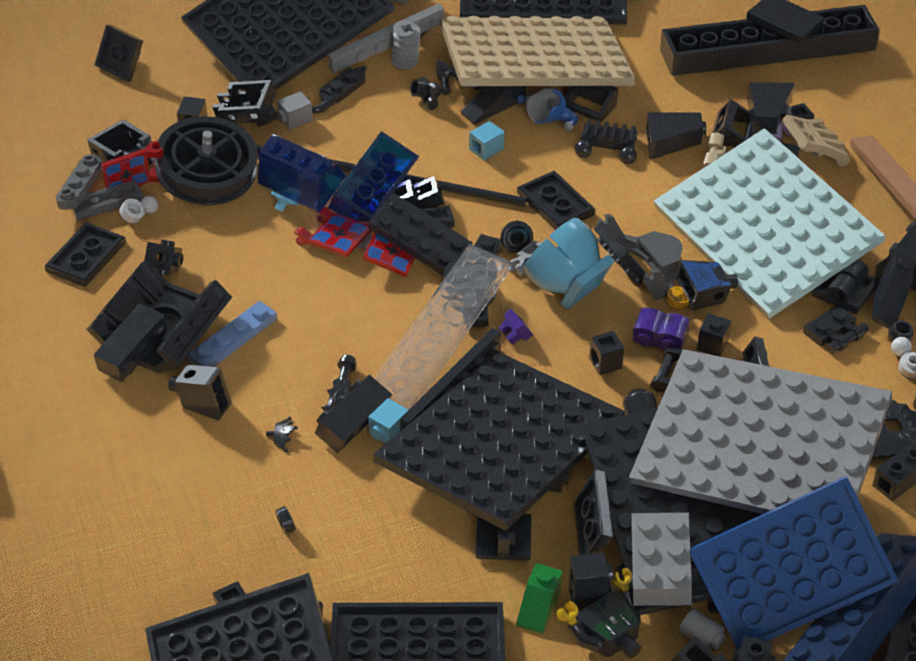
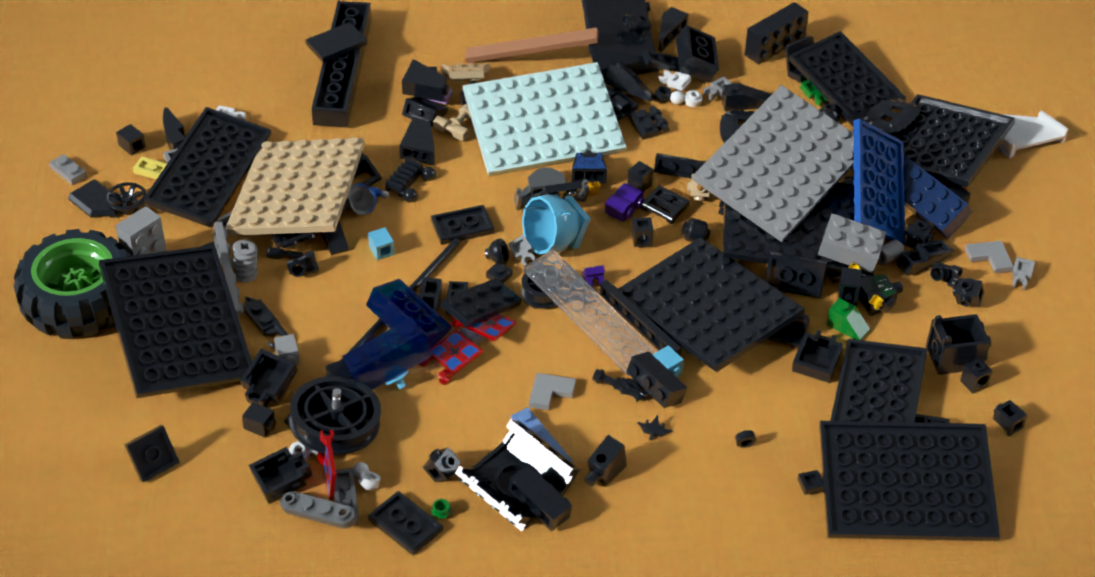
camera: 75 degrees left, 0 degrees up
(107, 274) = (441, 504): none -> green plate
(316, 323) = (549, 385): none -> light grey tile
(459, 574) = (817, 356): none -> black piece

